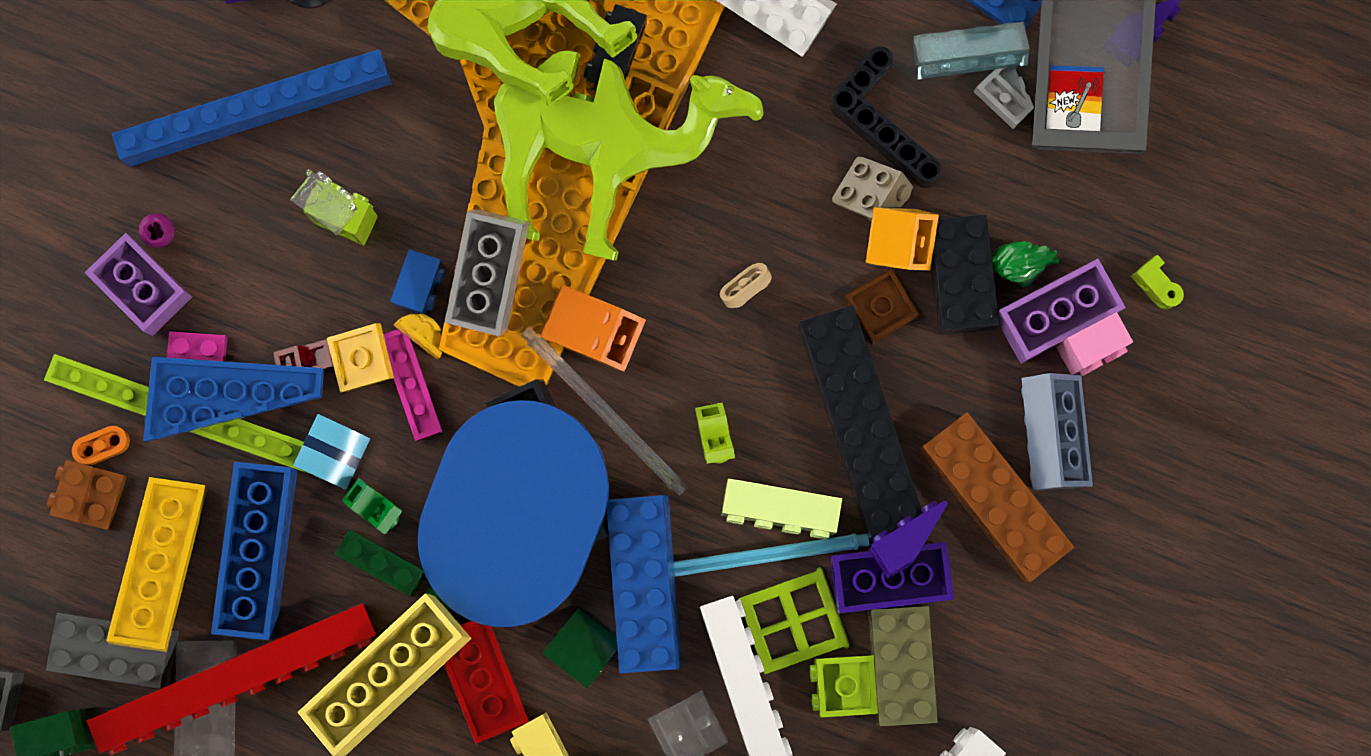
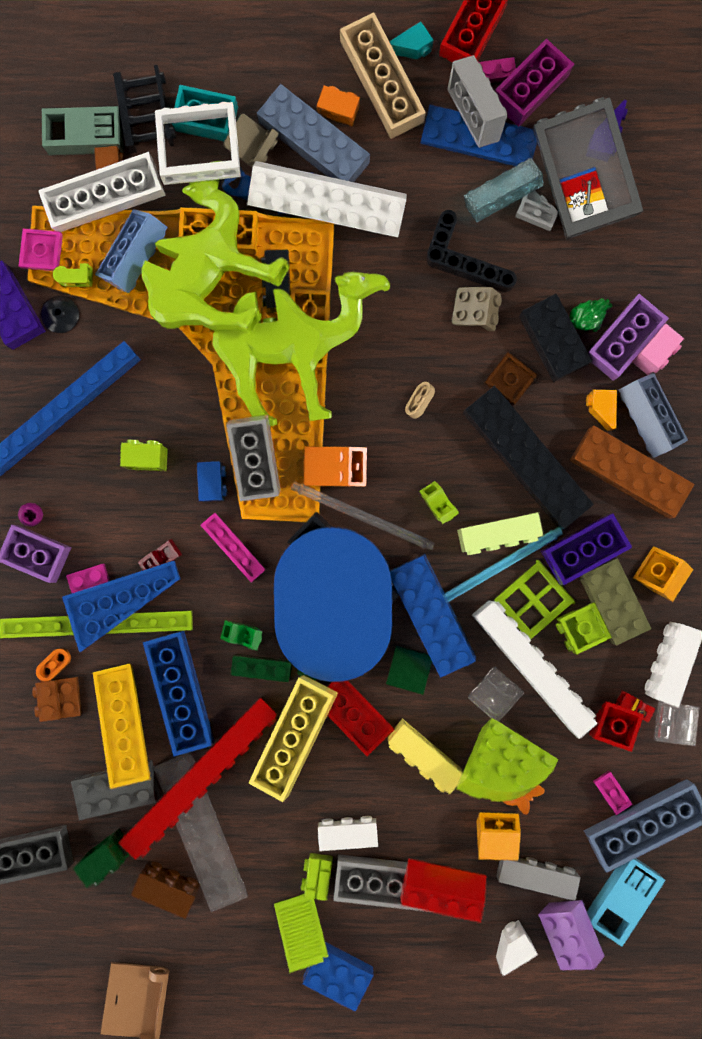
camera: 10 degrees left, 5 degrees up
(324, 202) = (131, 455): clear bracket -> none
(331, 451) = (201, 610): medium azure slope -> none
(360, 357) = (194, 543): yellow plate -> none
(422, 331) = (227, 511): yellow tile -> none
(901, 547) = (589, 527): dark purple slope -> none
(902, 238) = (509, 330): light orange slope -> none
(986, 655) = (663, 573): none -> light orange slope
(992, 393) = (603, 407): none -> light orange slope
(1157, 284) = (680, 295): lime leg -> none

